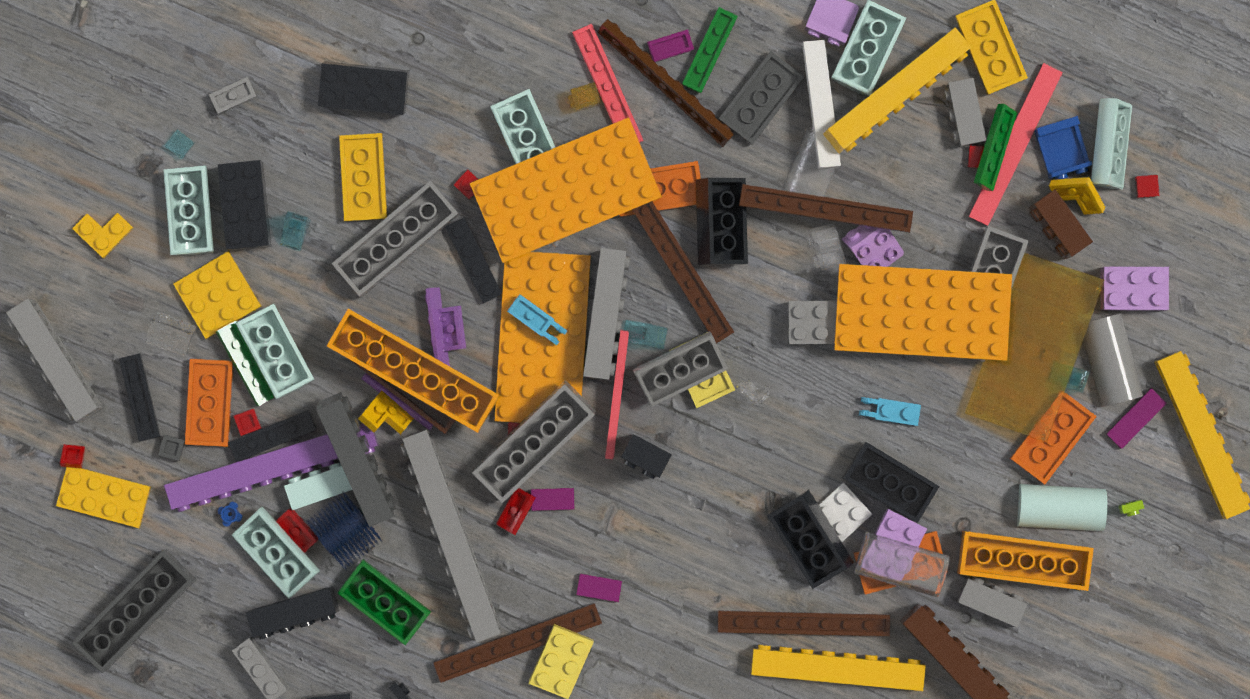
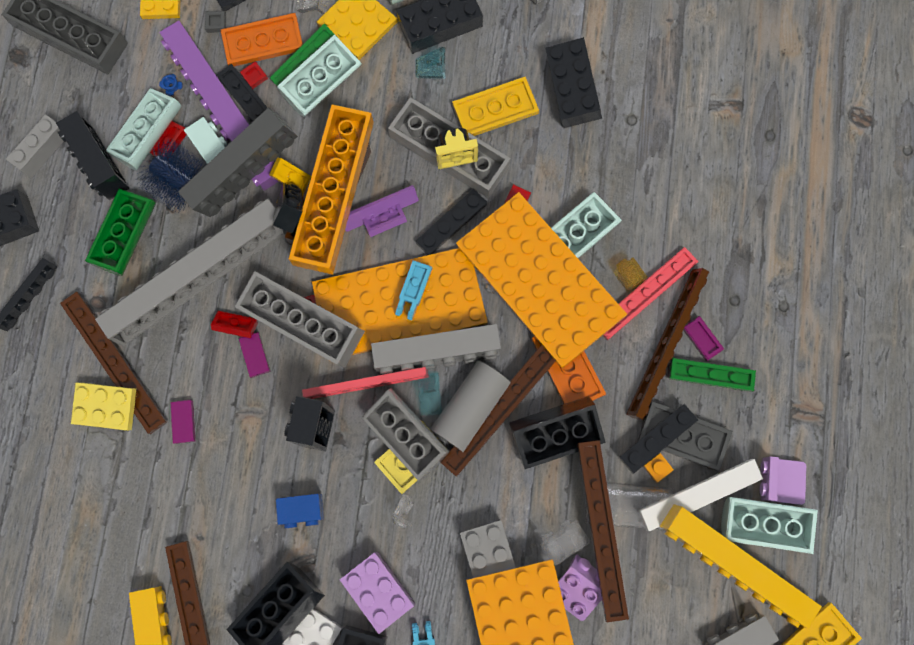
camera: 80 degrees right, 10 degrees down
(408, 234) = (455, 148): none -> light yellow piece
(419, 419) = (288, 207): none -> black slope
(670, 297) = (470, 405): none -> light grey brick
(721, 492) = (299, 509): none -> blue brick
(756, 125) = (658, 438): none -> black plate
(783, 133) = (658, 468): none -> light orange plate
(820, 438) = (377, 592): none -> lavender brick

